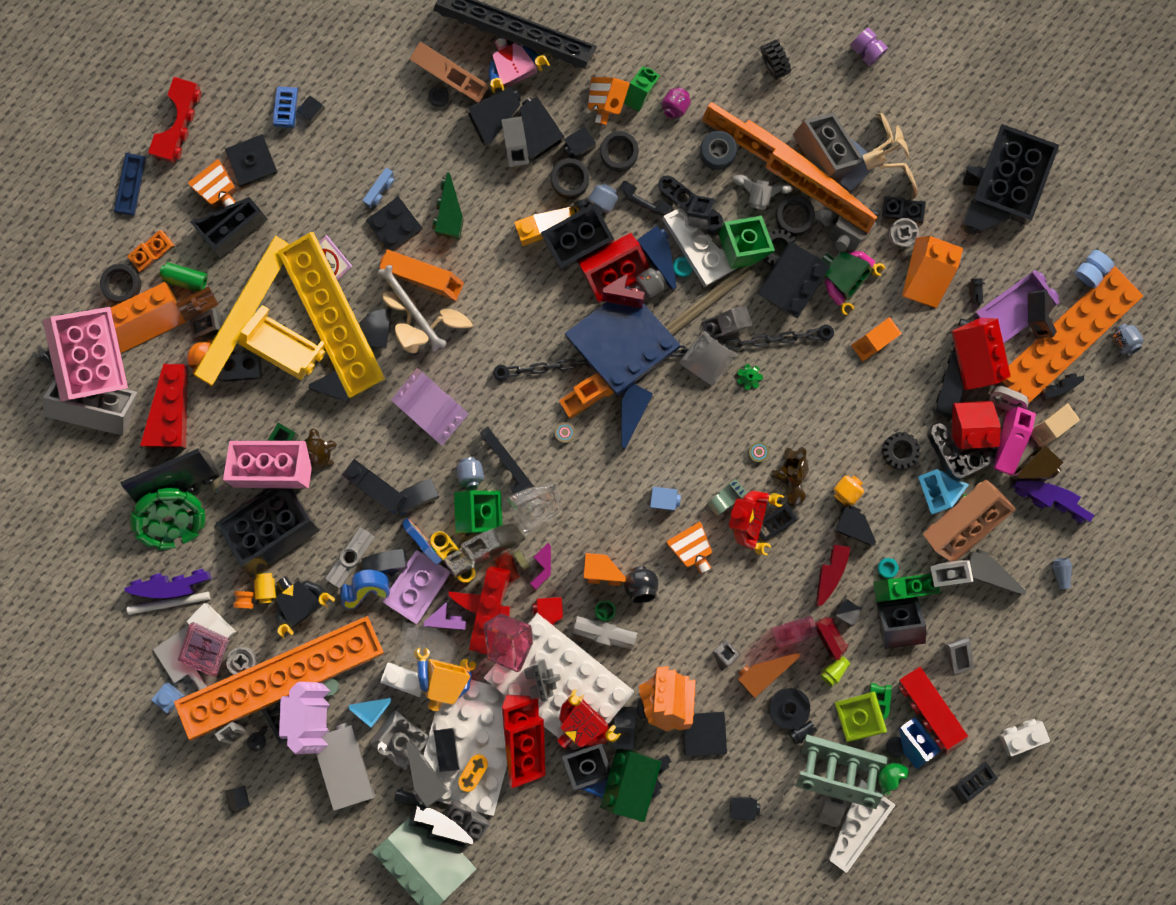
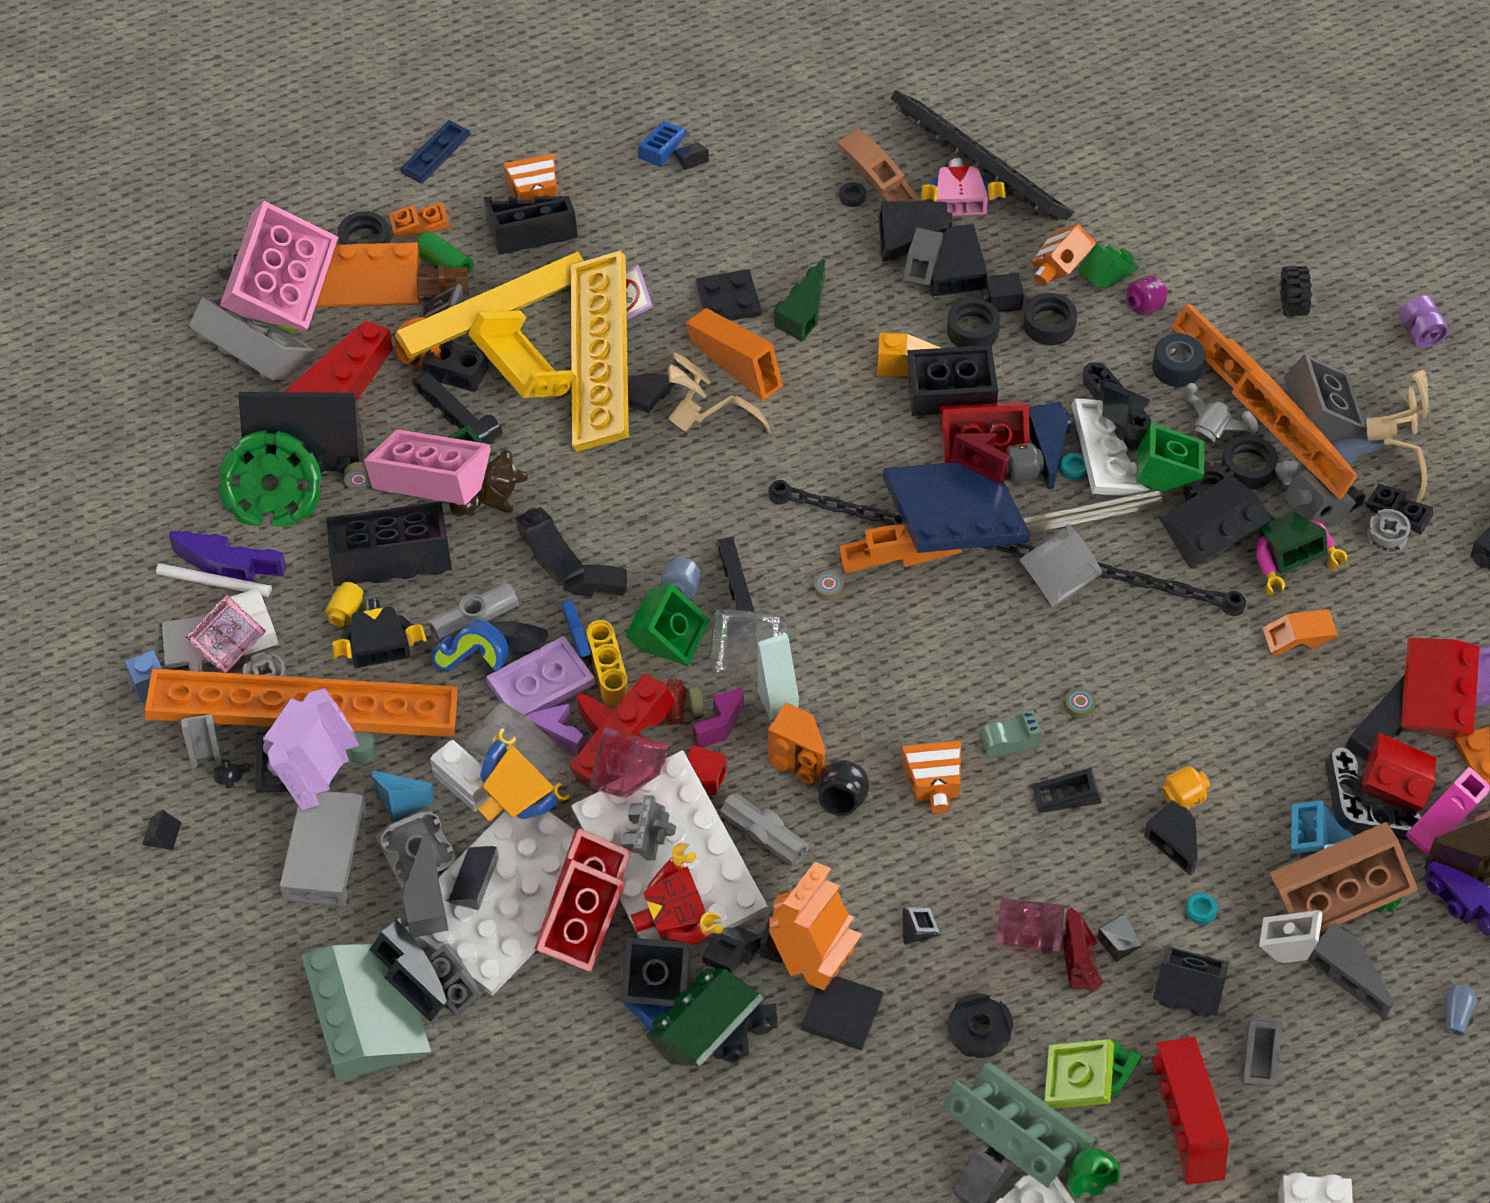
camera: 25 degrees right, 30 degrees down
(168, 143) = (503, 126): red arch -> none
(243, 599) = (310, 607): orange wheel -> none
(251, 160) = (591, 177): black plate -> none
(284, 412) = (453, 411): none -> black beam
(330, 386) = (553, 424): black slope -> none
(384, 182) = (729, 251): medium blue plate -> none
(388, 276) = (714, 421): light grey piece -> none
(405, 798) = (380, 916): black pin -> none
(429, 406) = (667, 482): lavender slope -> none
(469, 770) = (493, 918): light orange beam -> none
(484, 546) = (654, 654): clear smoke slope -> none
(570, 531) = (776, 675): none -> light aqua slope
(603, 197) = (1008, 355): sand blue head -> none
(605, 610) = (778, 798): dark green wheel -> none
(632, 408) = (934, 587): dark blue slope -> none
(661, 207) = (1043, 362): black bar -> none
(664, 499) = (924, 703): medium blue brick -> none
(727, 322) = (1111, 539): flat silver slope -> none
(744, 808) = (852, 1124): black brick -> none
(748, 382) = (1107, 616): green plant -> none
(748, 518) = (1029, 763): red torso -> none
(762, 674) = (966, 963): dark orange slope -> none
(793, 474) = (1117, 743): dark brown animal -> none
(800, 734) = (975, 1063): black pin -> none
(832, 573) = (1117, 878): dark red slope -> none
(835, 671) = (1066, 1004): lime cone -> none
(894, 747) = (1115, 1140): black tile -> none
(905, 587) = (1212, 935): green slope -> none
(910, 442) = (1276, 786): black tyre -> none
(917, 743) = (1148, 1140): blue slope -> none
(931, 270) = (1409, 578): orange slope -> none
(976, 289) = (1466, 624): black pin -> none
(1008, 399) = (1463, 761): beam -> none

